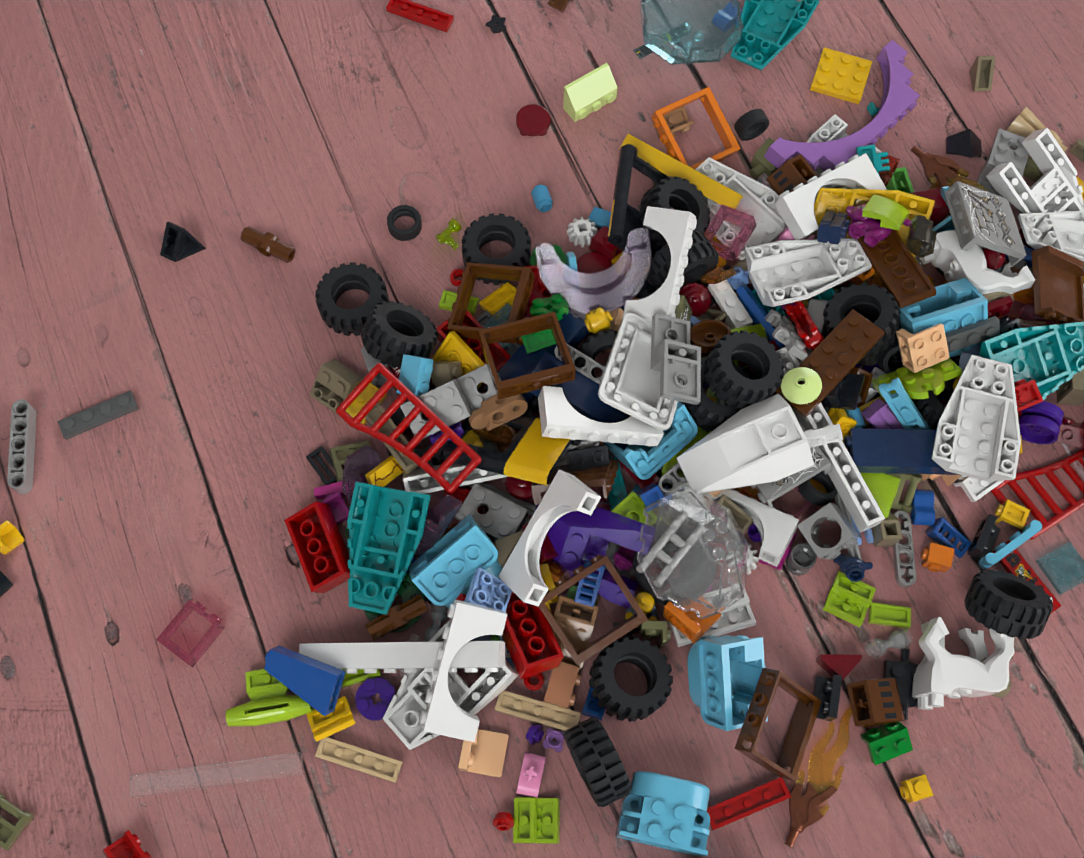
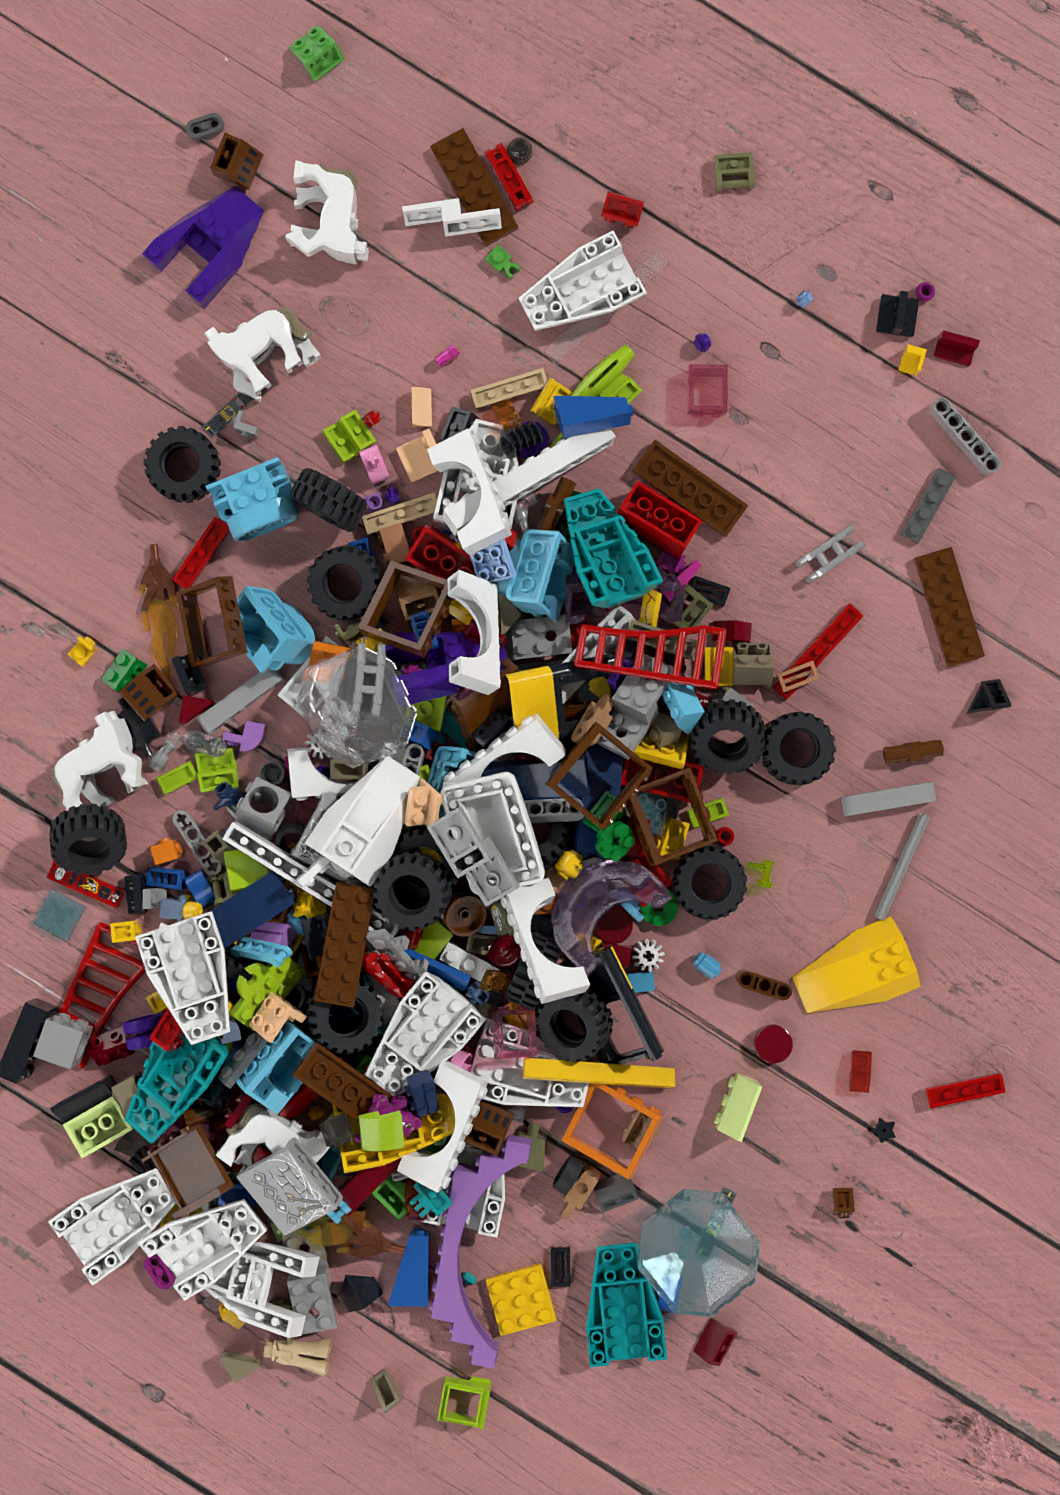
camera: 145 degrees right, 20 degrees up
(44, 655) = (804, 298): none -> medium blue plate
(150, 330) = (949, 607): none -> reddish brown plate
(160, 679) = (702, 342): none -> dark purple plate
(215, 437) = (832, 542): none -> light grey piece
(220, 805) = (584, 285): none -> white wedge
(273, 560) = (690, 488): none -> reddish brown plate
(276, 363) = (822, 646): none -> red tile
(314, 224) = (888, 798): none -> light grey beam
(325, 349) = (782, 682): none -> nougat tile
(332, 423) = (735, 630): none -> dark red slope
(343, 175) = (902, 866): none -> light grey axle
(380, 733) = (506, 415): none -> clear orange slope
(383, 701) = (520, 435): none -> black piece
(392, 833) = (447, 355): none -> dark pink pin
(399, 211) = (825, 855): black tyre -> none
(429, 129) = (859, 970): none -> yellow wedge
(431, 755) = (457, 422): none -> black bracket
(450, 800) = (421, 407): none -> light nougat slope
(483, 66) = (860, 1071): none -> clear red slope
(507, 153) = (771, 990): none -> reddish brown beam
(689, 429) = (422, 805): none -> light nougat bracket
(727, 99) = (614, 1192): none -> dark grey panel
(738, 110) = (580, 1191): none -> medium nougat piece
(791, 87) = (560, 1249): none -> black tile
(800, 643) = (239, 700): none -> light grey beam
(801, 393) = (345, 909): yellowish green dish -> none
(804, 602) = (252, 736): none -> medium lavender brick
(853, 632) = (196, 740): none -> clear piece
(913, 42) = (474, 1385): none -> lime piece
(918, 130) = (412, 1279): none -> blue slope
(952, 501) = (180, 908): none -> sand blue piece
(969, 526) = (153, 896): none -> light grey bracket
(1016, 540) = (115, 892): medium azure plate -> none

